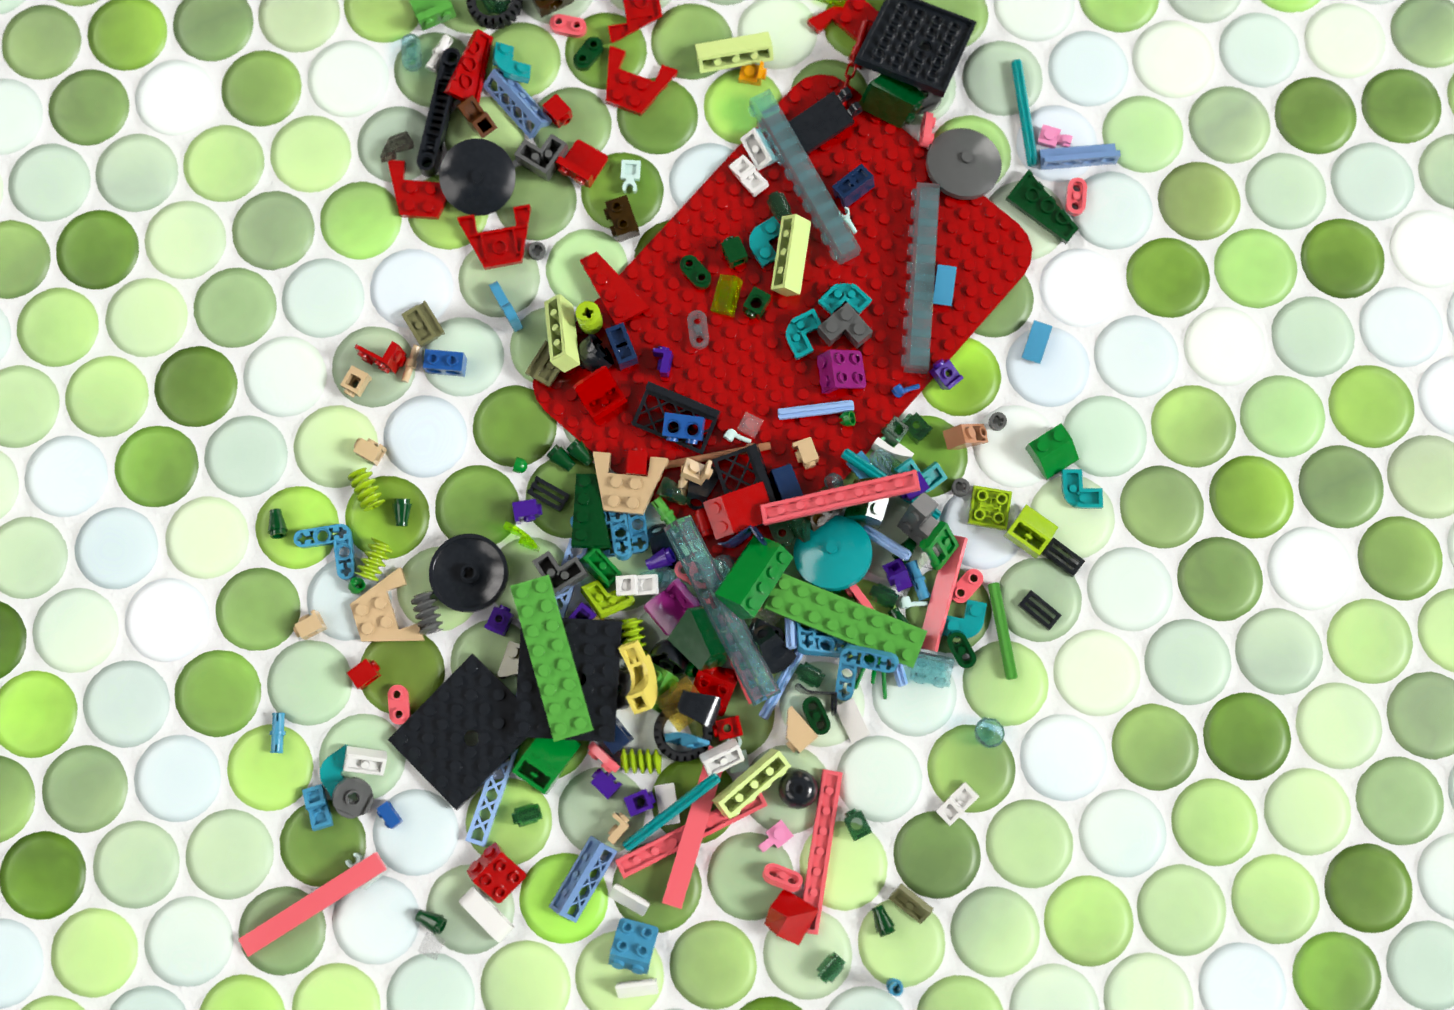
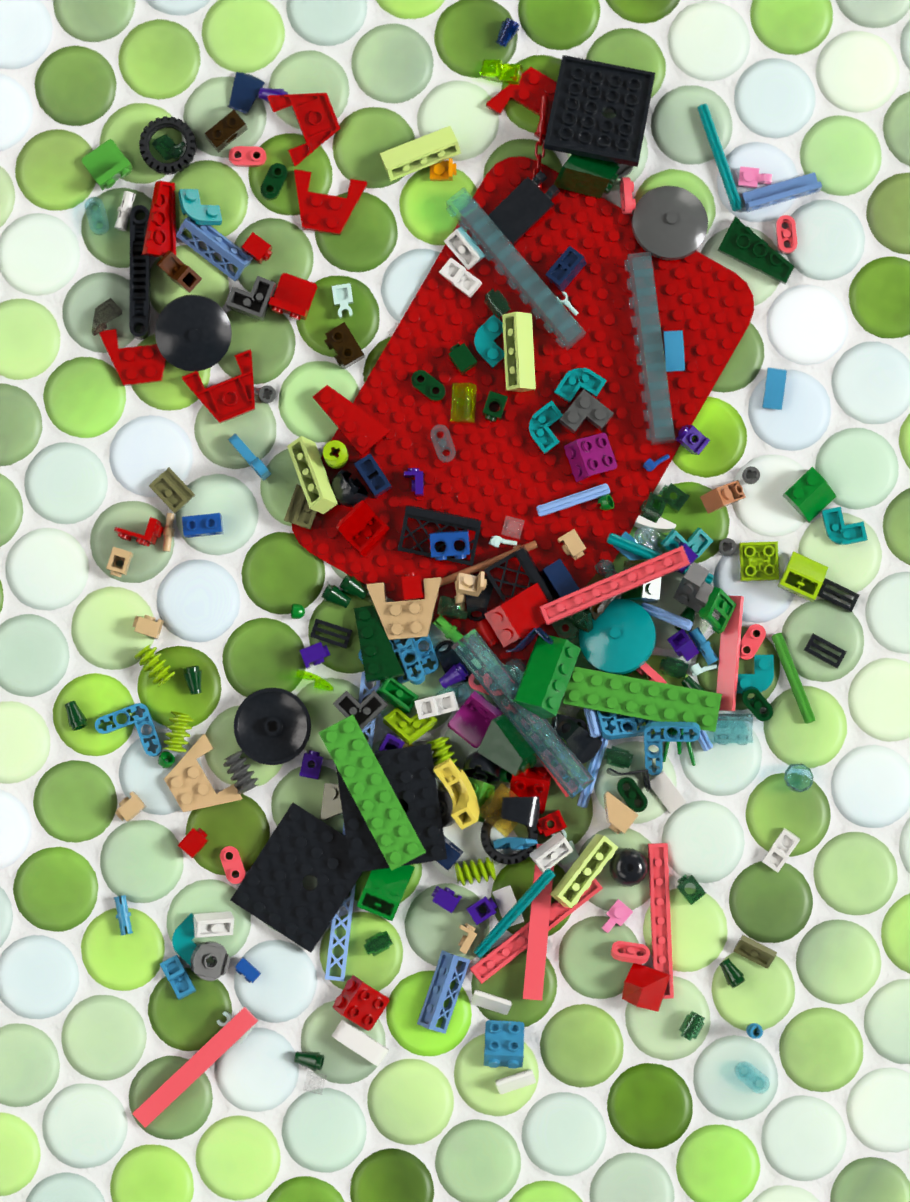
camera: 15 degrees left, 5 degrees up
(597, 752) = (445, 879): coral plate -> none

